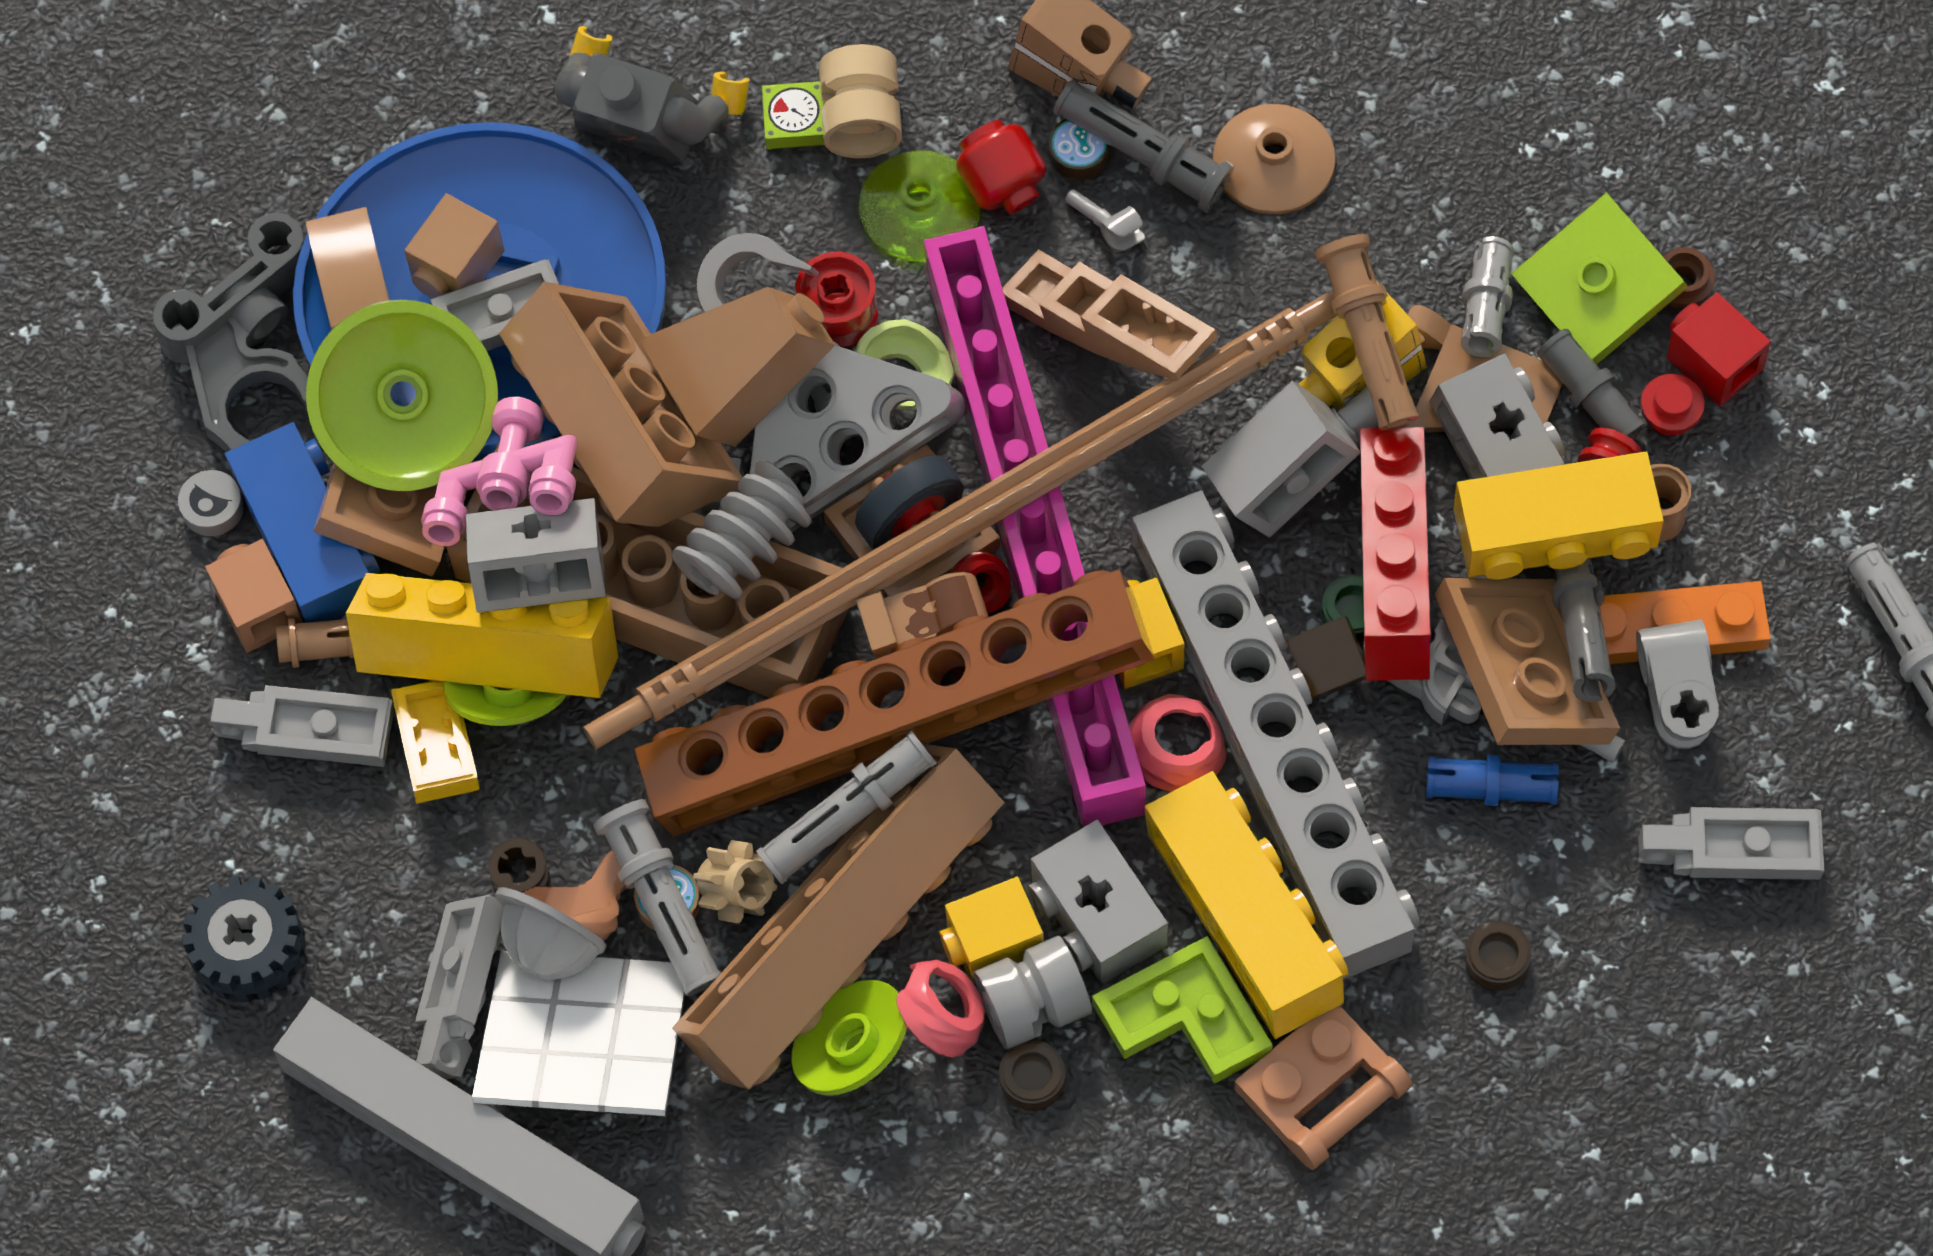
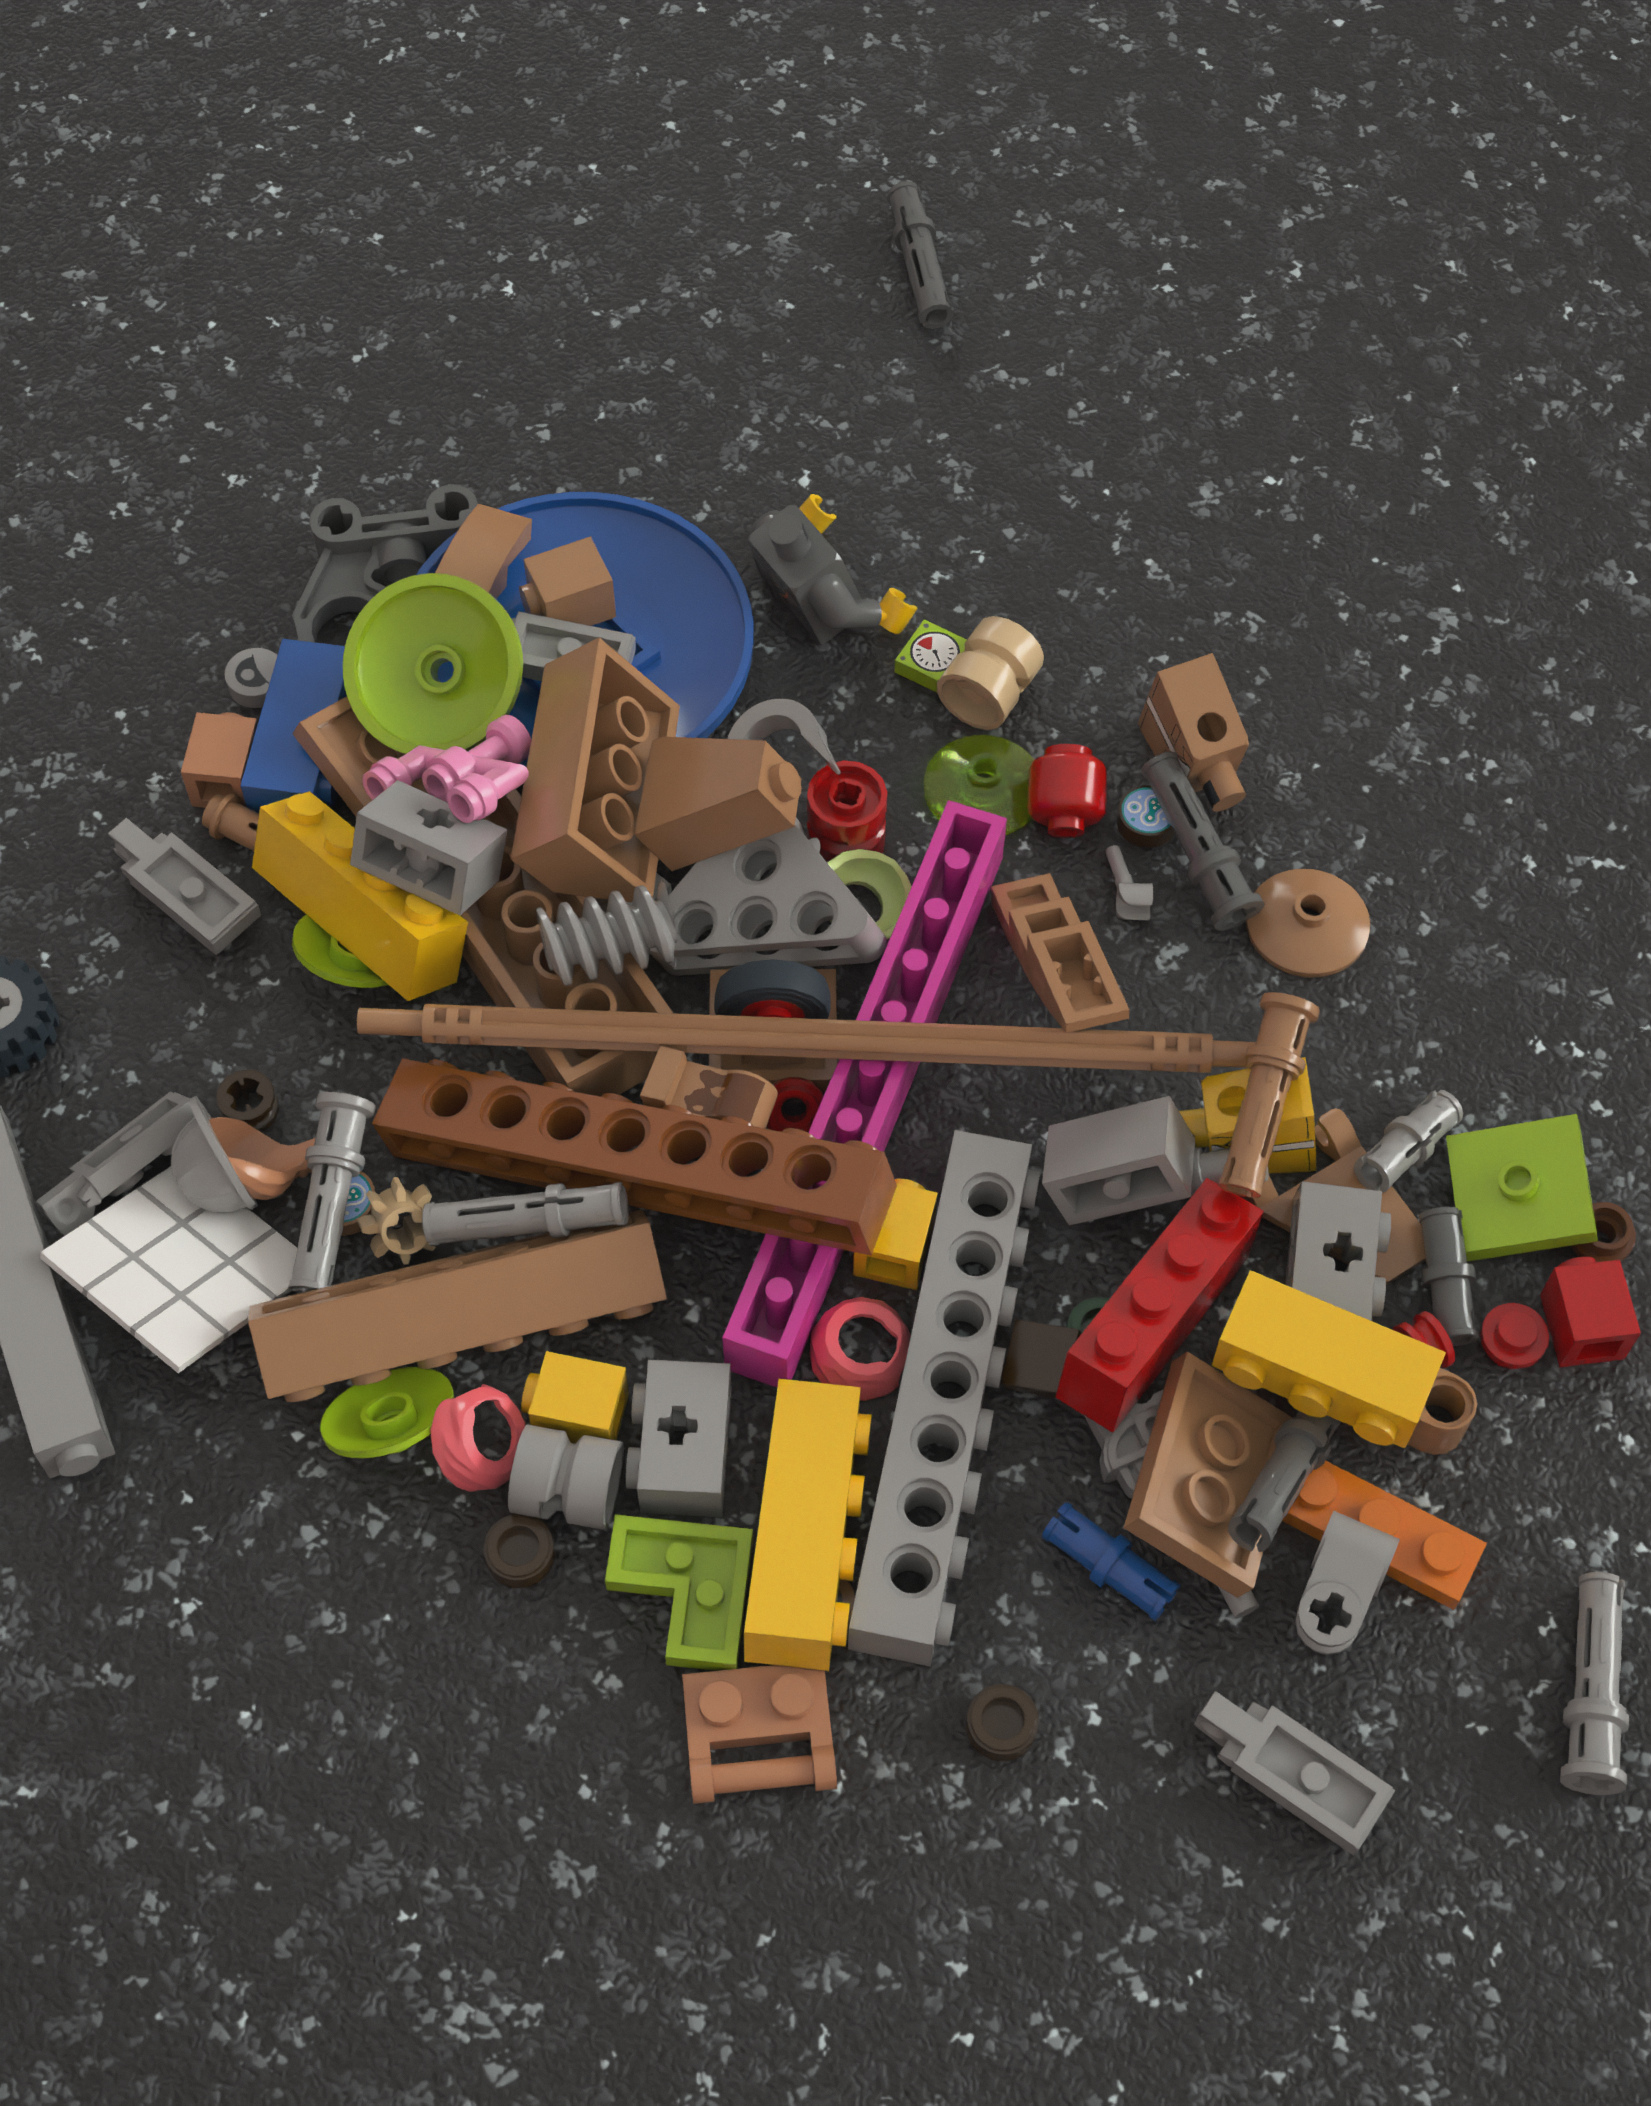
camera: 30 degrees right, 5 degrees down
(434, 742) = (259, 961): yellow plate -> none

